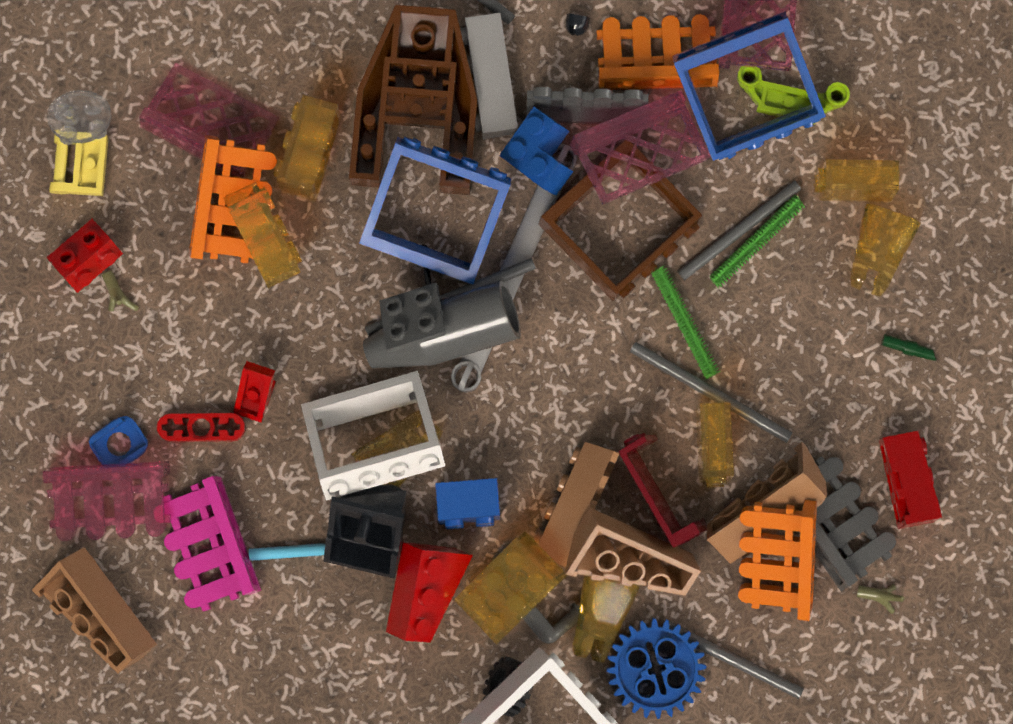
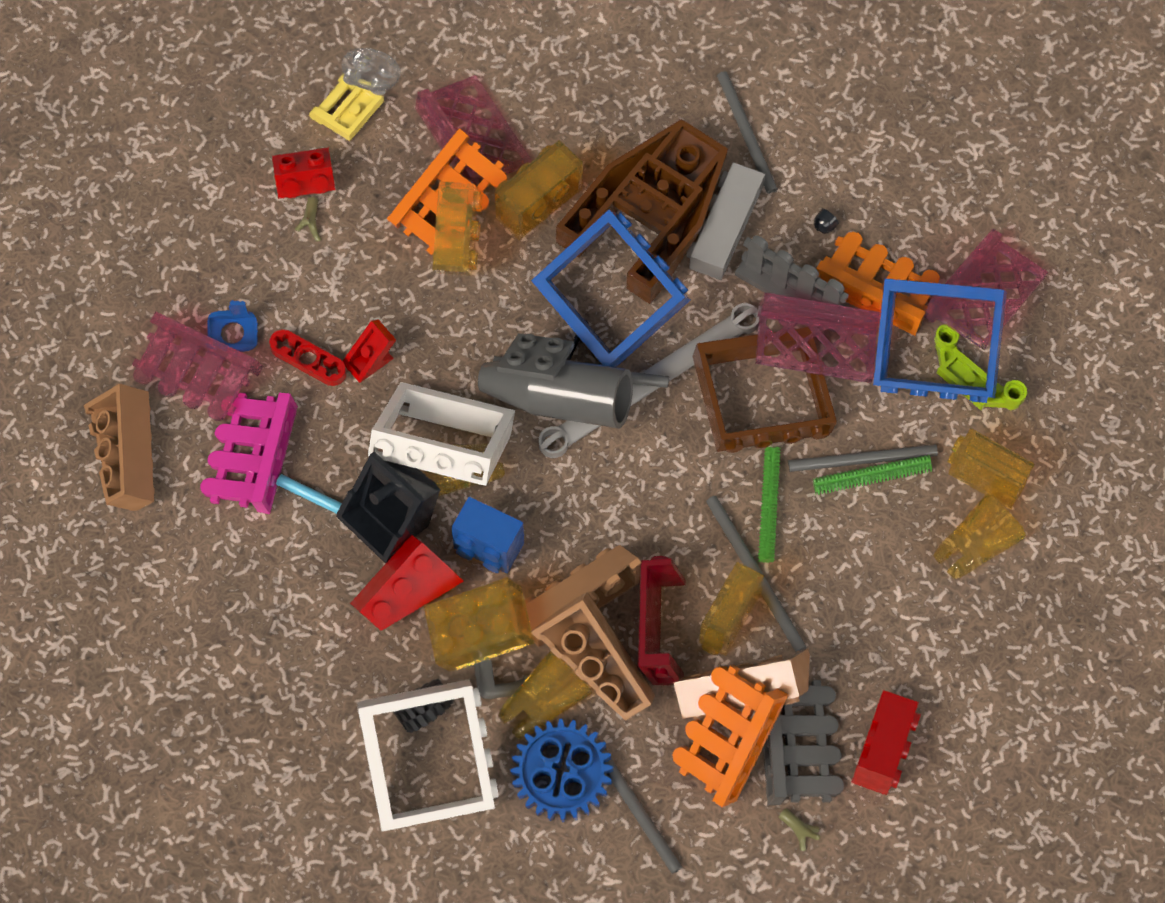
camera: 30 degrees right, 15 degrees down
(532, 151) = (727, 291): blue brick -> none
(908, 347) = (953, 635): dark green piece -> none

